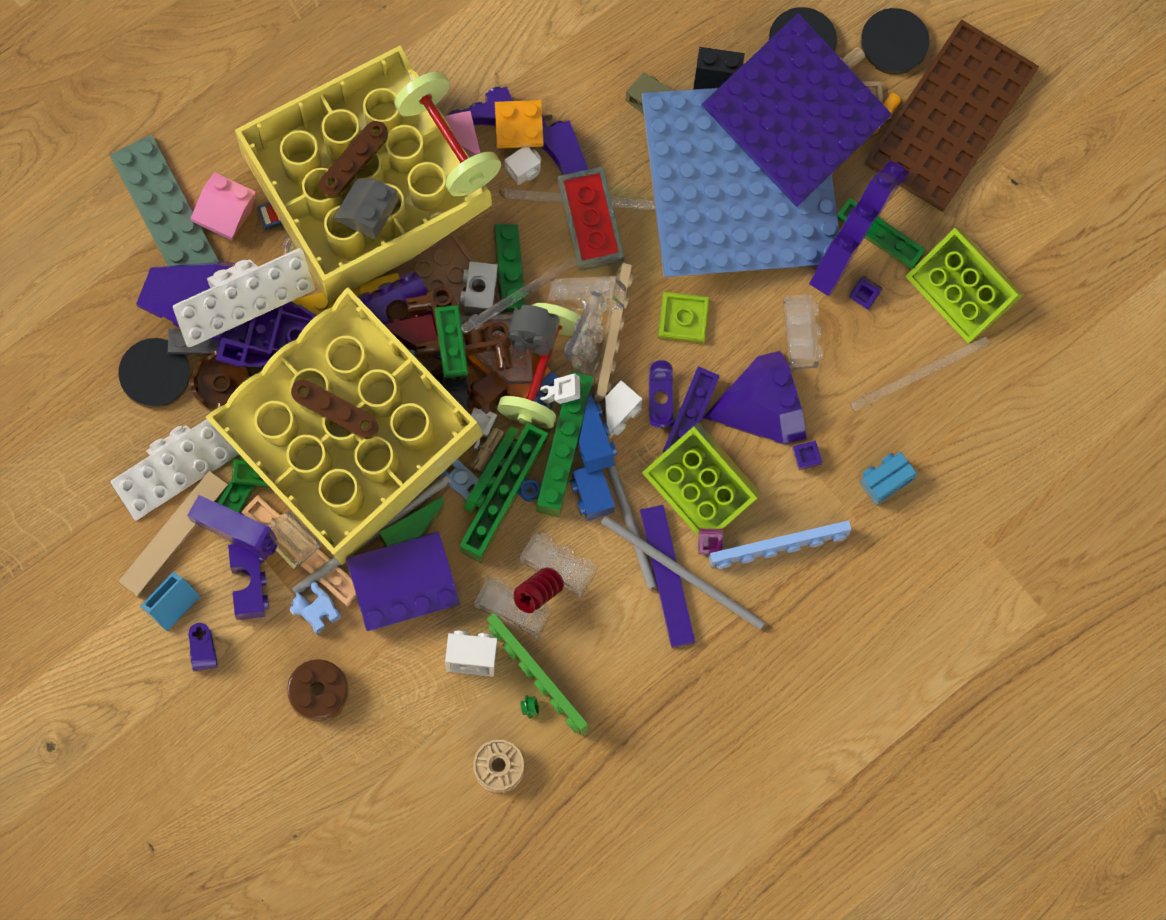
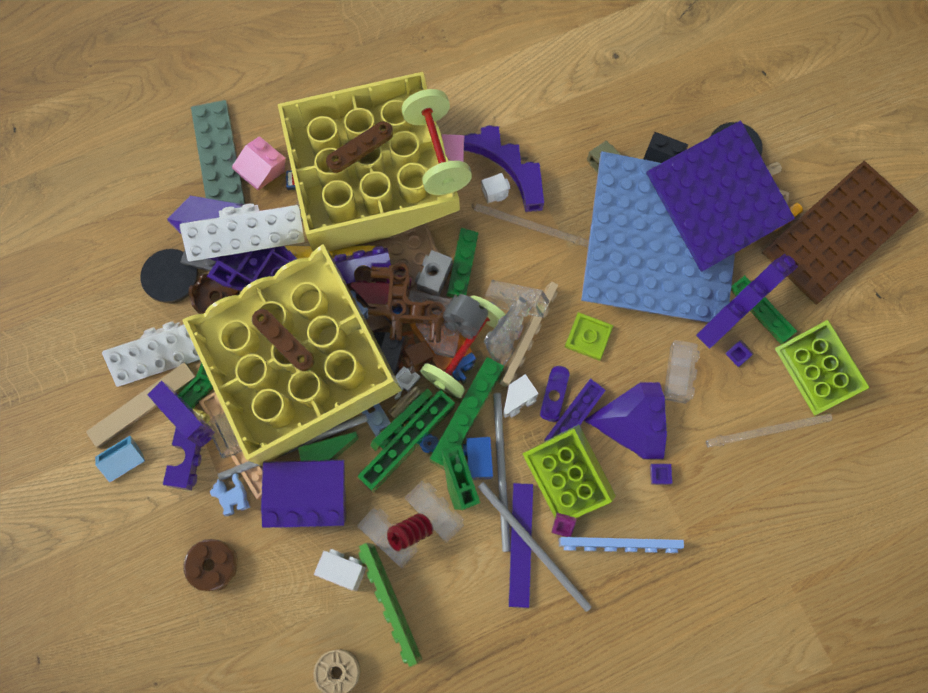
camera: 20 degrees right, 0 degrees up
(202, 651) = (131, 506): dark purple piece -> none
(367, 206) = (358, 185): dark grey slope -> none
(451, 341) = (395, 309): green tile -> none
(476, 321) = (420, 297): clear bar -> none
(519, 124) = (499, 155): light orange plate -> none
(530, 706) = (378, 627): green plate -> none
(564, 389) = (476, 371): white plate -> none
(577, 519) = (459, 479): none -> green slope
(590, 219) = (535, 241): red brick -> none
(593, 442) = (489, 417): blue slope -> none
(888, 477) = (723, 511): dark azure brick -> none
(894, 40) = (807, 164): black tile -> none

